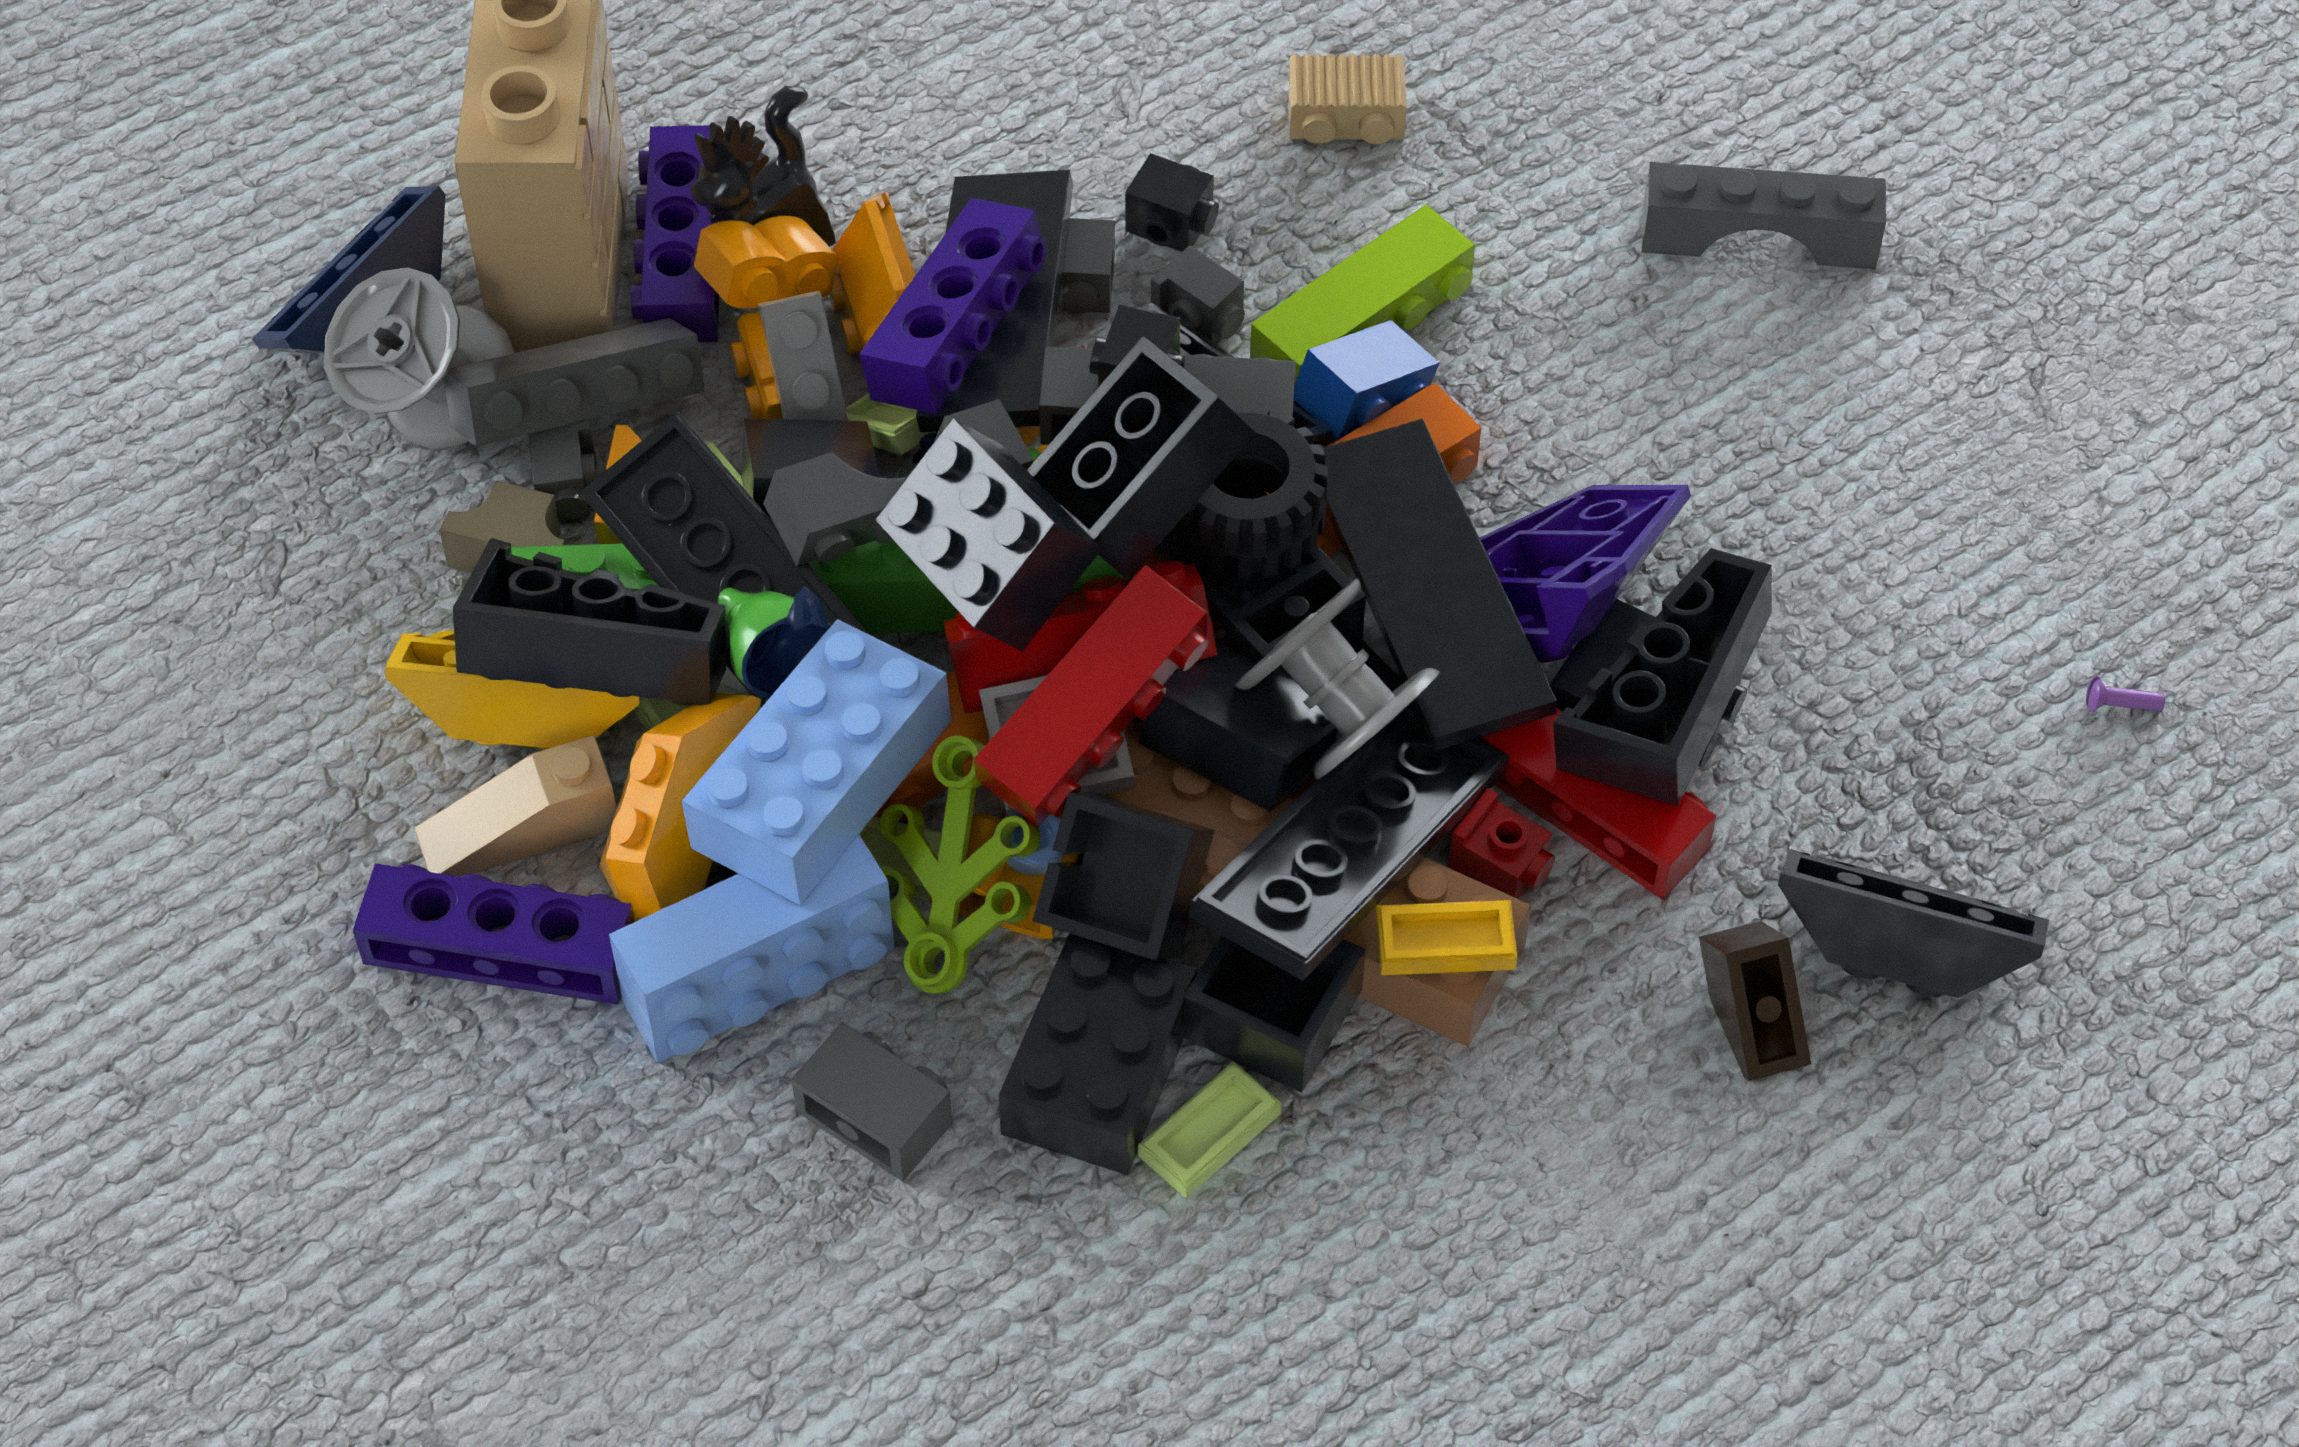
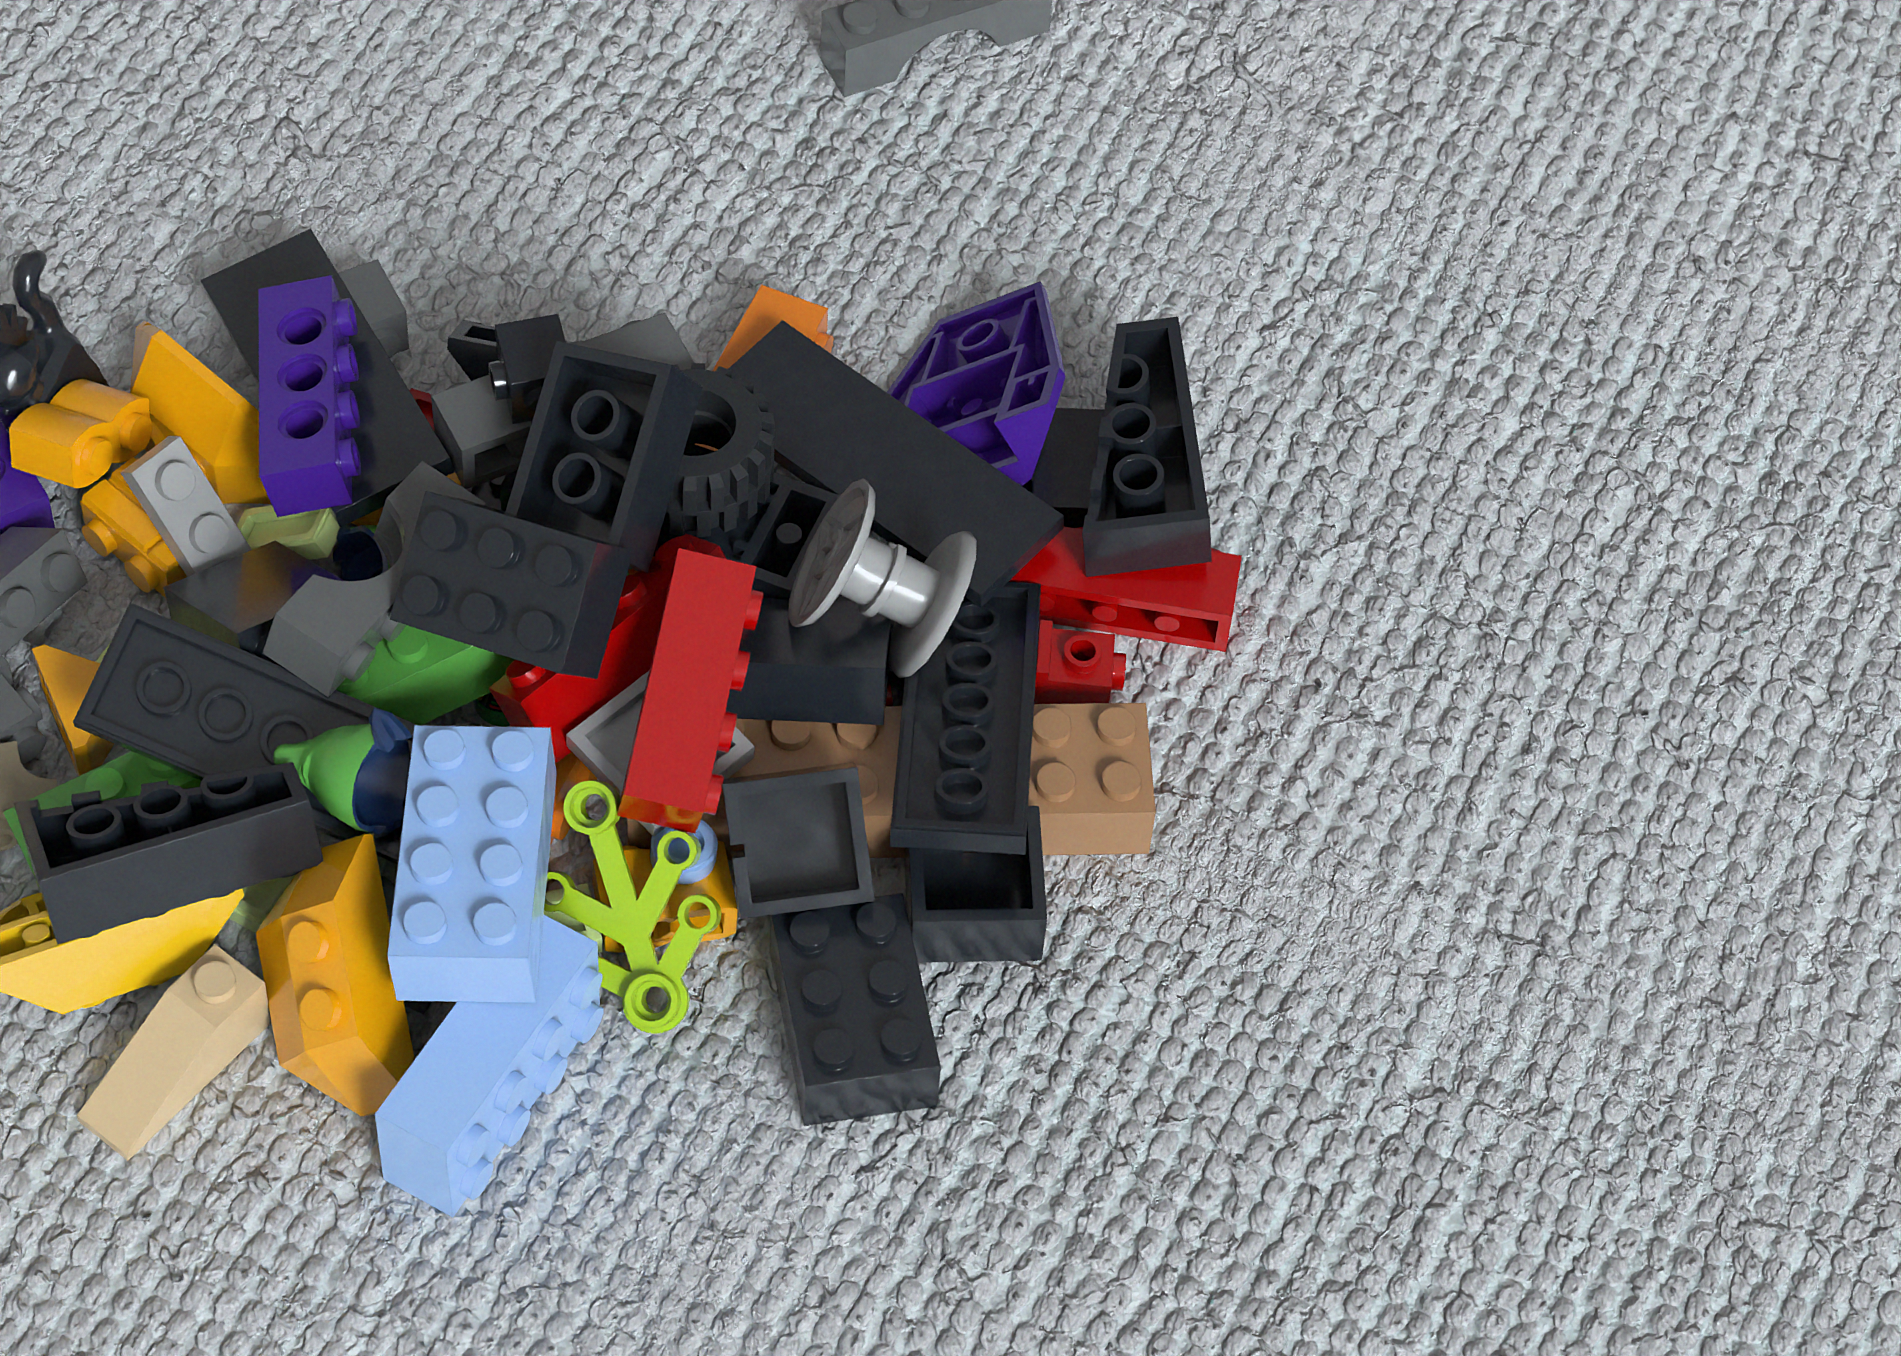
camera: 35 degrees left, 0 degrees up
(460, 946) = (215, 1201): dark purple brick -> none
(873, 1100) = (682, 1150): dark grey brick -> none
(1170, 203) = (409, 223): black brick -> none
(1200, 294) = (491, 292): dark grey brick -> none
(1209, 1129) = (984, 1031): yellowish green tile -> none
(1347, 97) = (504, 62): tan brick -> none
(1362, 376) = (702, 300): blue brick -> none
(1390, 278) = (643, 236): lime brick -> none
(1446, 937) = (1102, 763): yellow tile -> none
(1756, 998) = (1362, 694): dark brown slope -> none
(1907, 928) = (1454, 579): black wedge -> none
(2099, 695) = (1462, 316): medium lavender piece -> none

